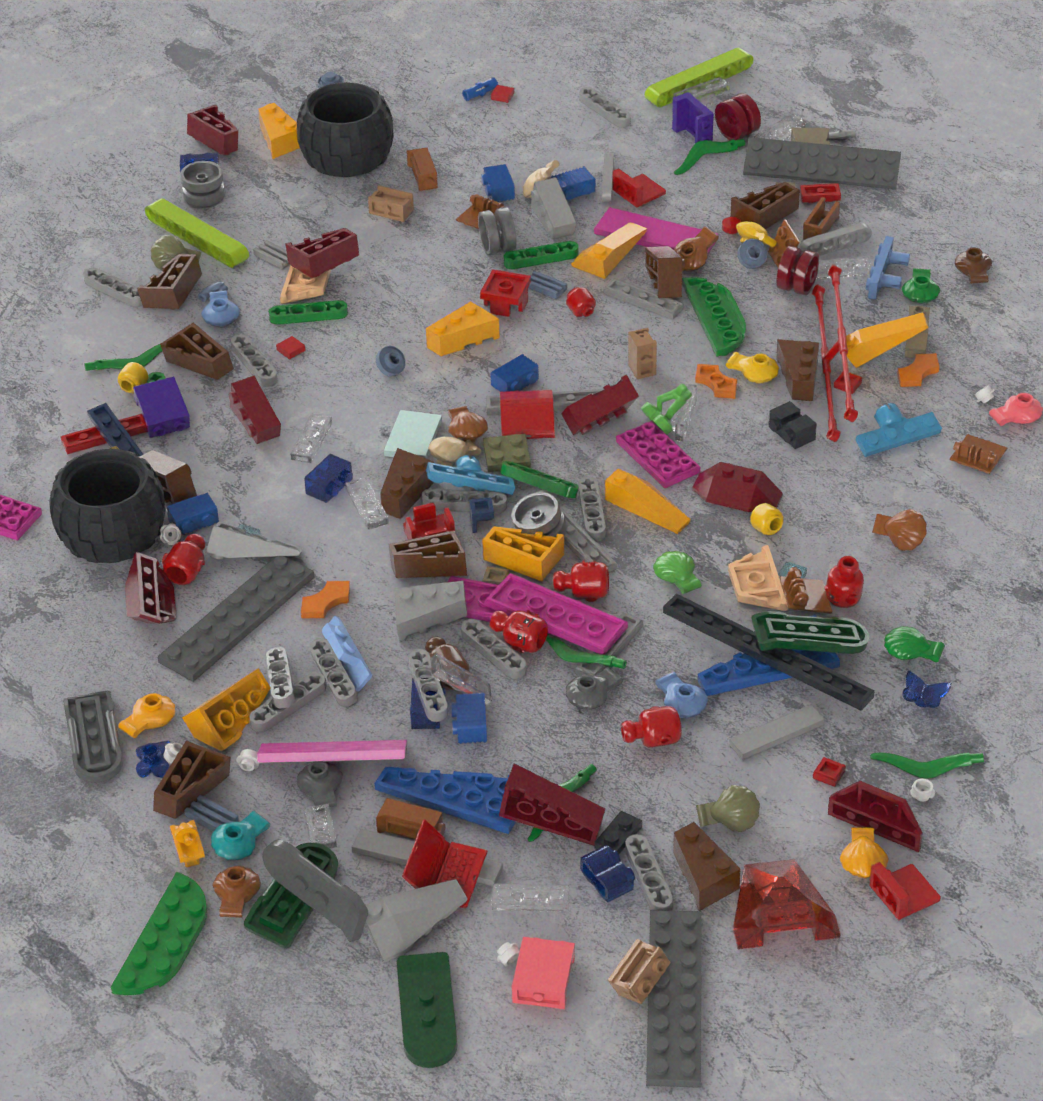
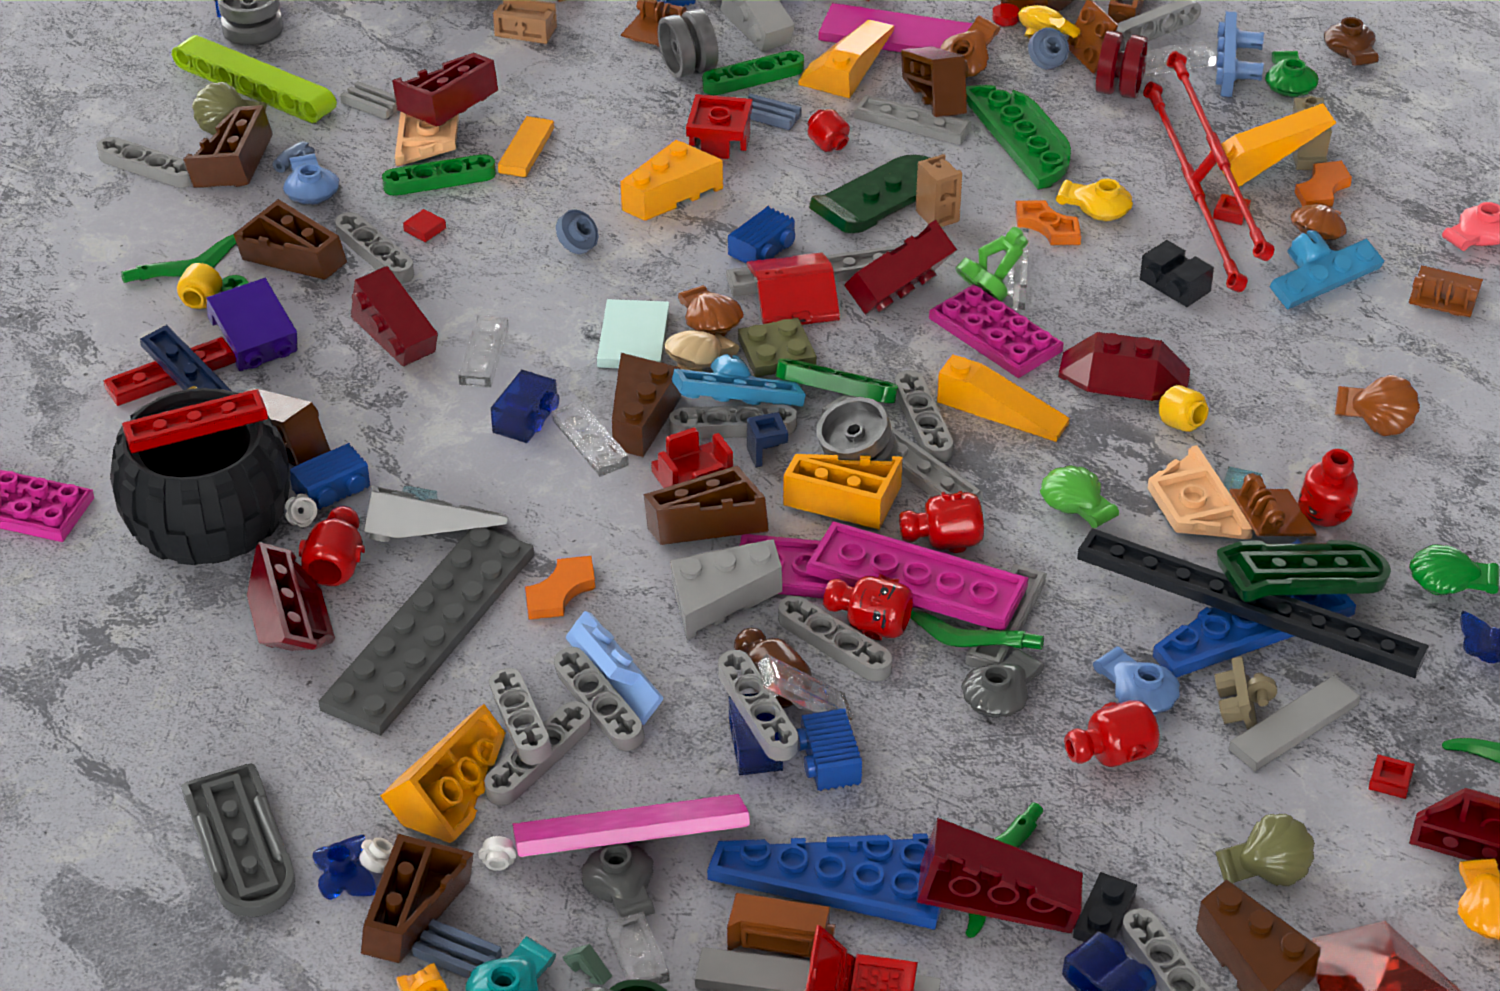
camera: 10 degrees left, 0 degrees up
(105, 470) = (194, 421): none -> red tile
(148, 713) = (323, 793): light orange animal -> none
(287, 827) = (588, 961): none -> sand green tile
(371, 296) = (525, 146): none -> light orange tile
(495, 575) = (809, 527): dark tan tile -> none
(598, 352) = (871, 196): none -> dark green piece
(747, 710) = (1236, 681): none -> dark tan hips
(799, 367) = (1162, 193): reddish brown wedge -> none
(904, 396) = (1320, 219): none -> dark orange animal
(984, 394) = (1427, 209): white plate -> none

